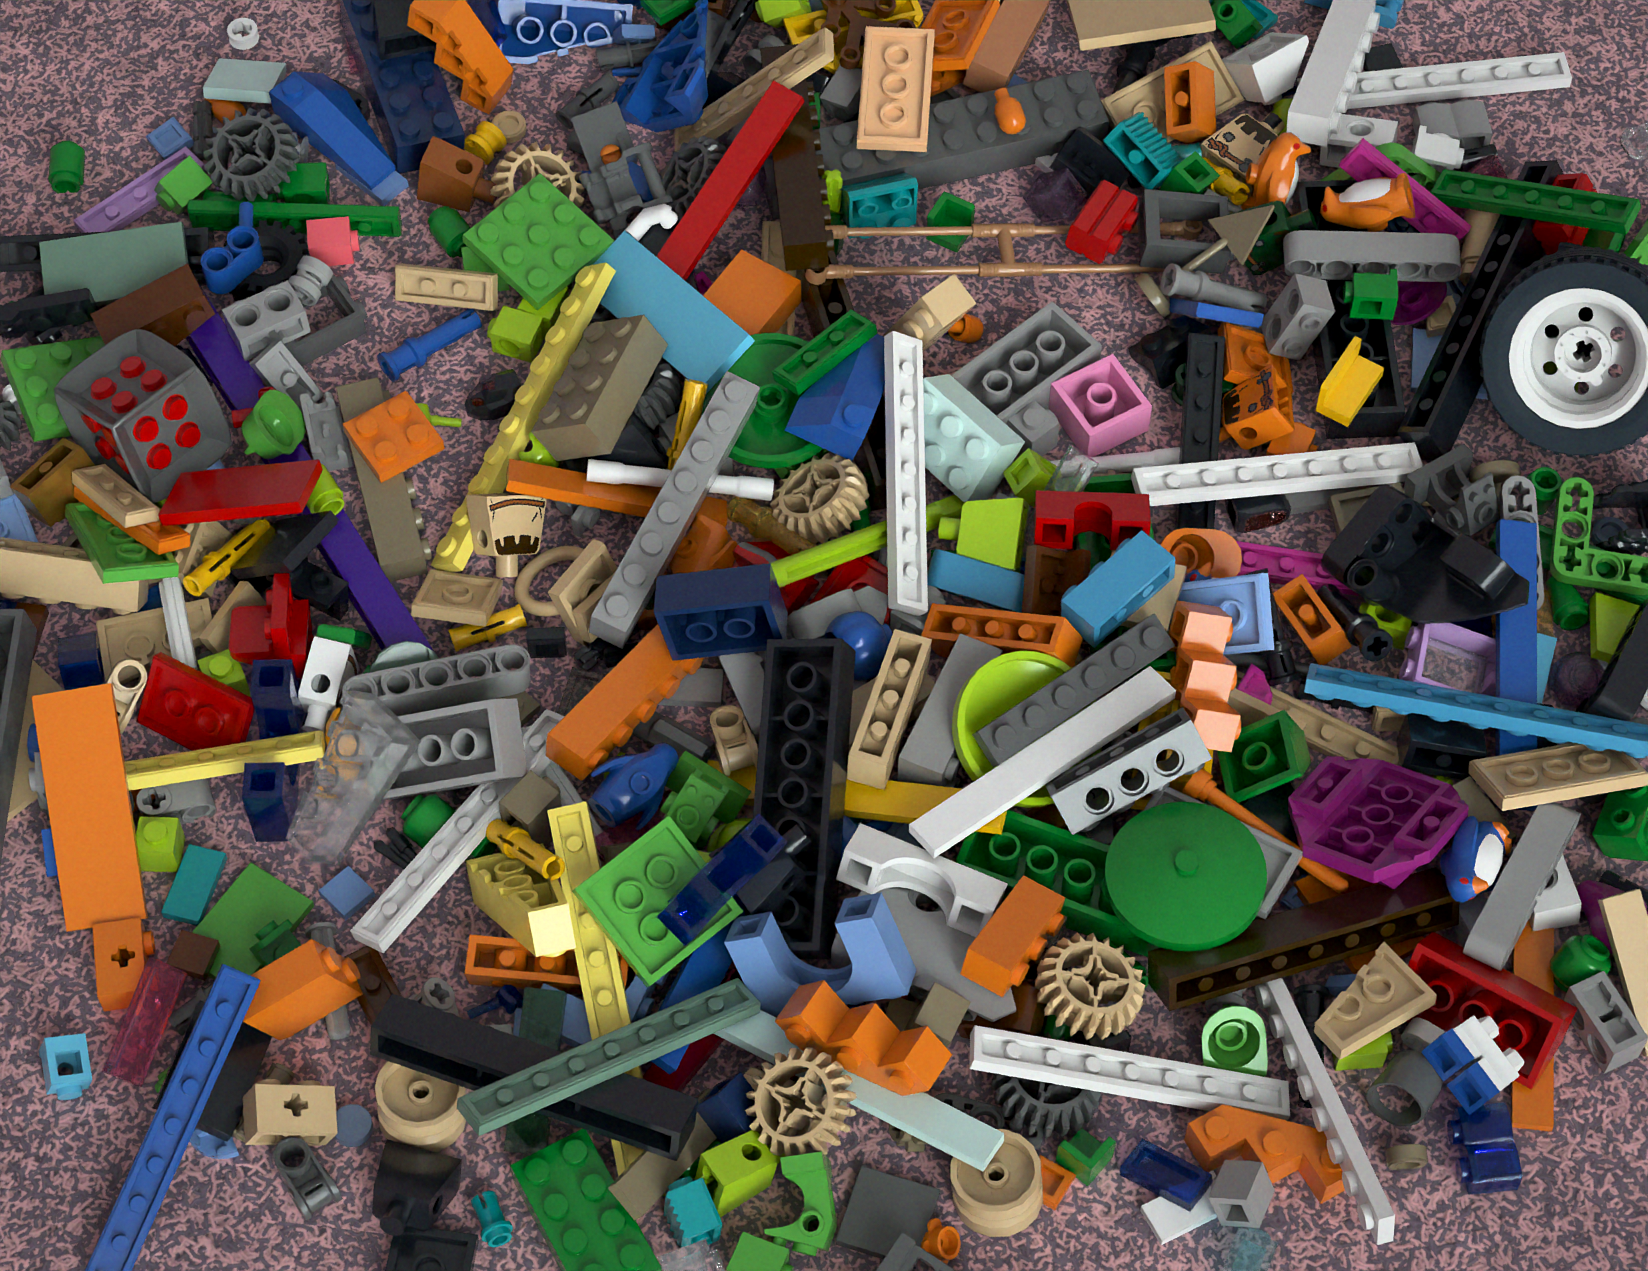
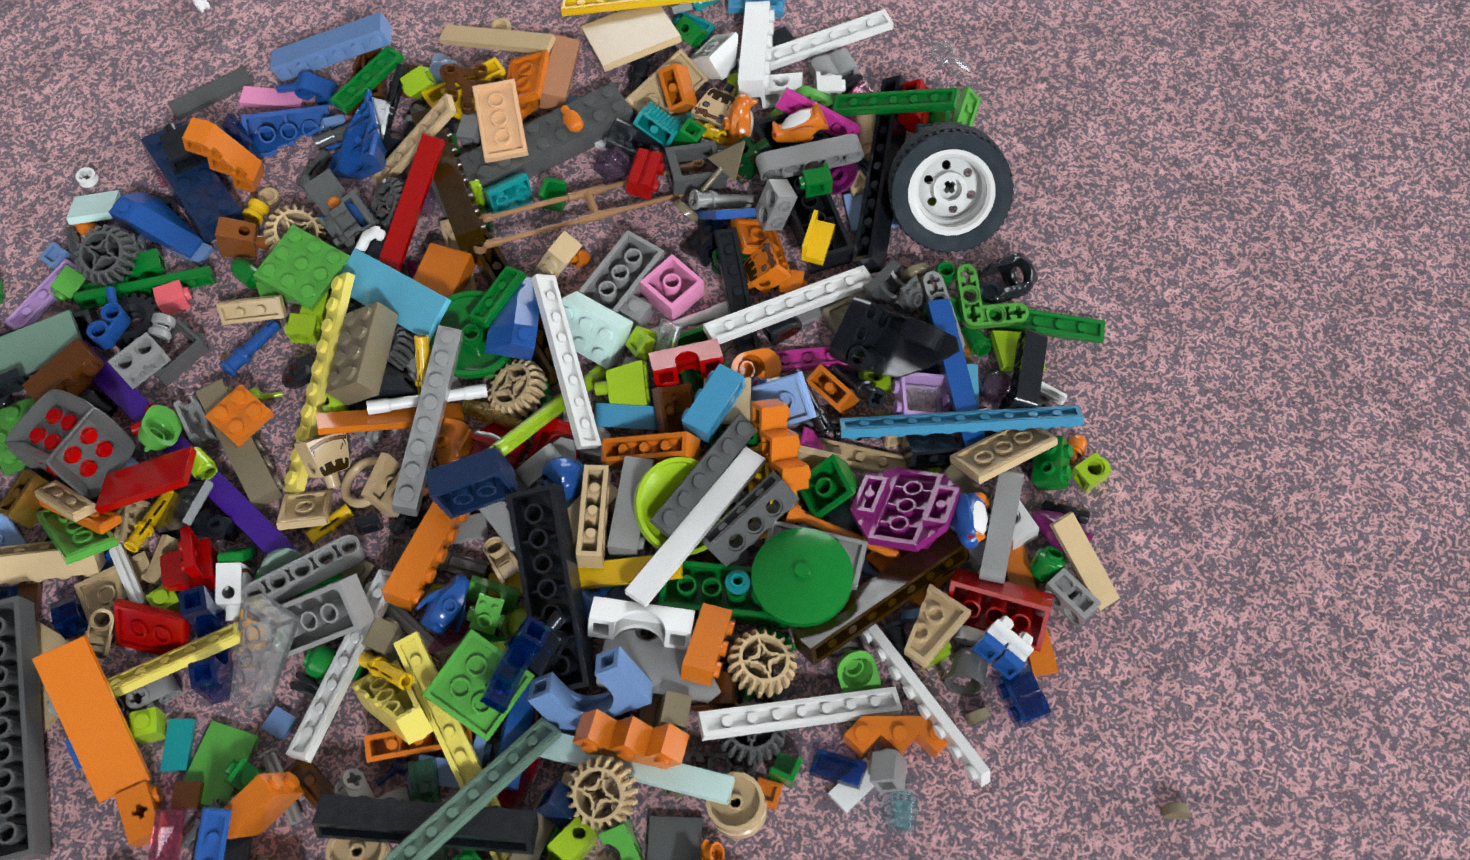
camera: 15 degrees left, 5 degrees up
(284, 373) = (160, 391): light grey slope -> none
(1080, 870) = (737, 589): none -> teal plate

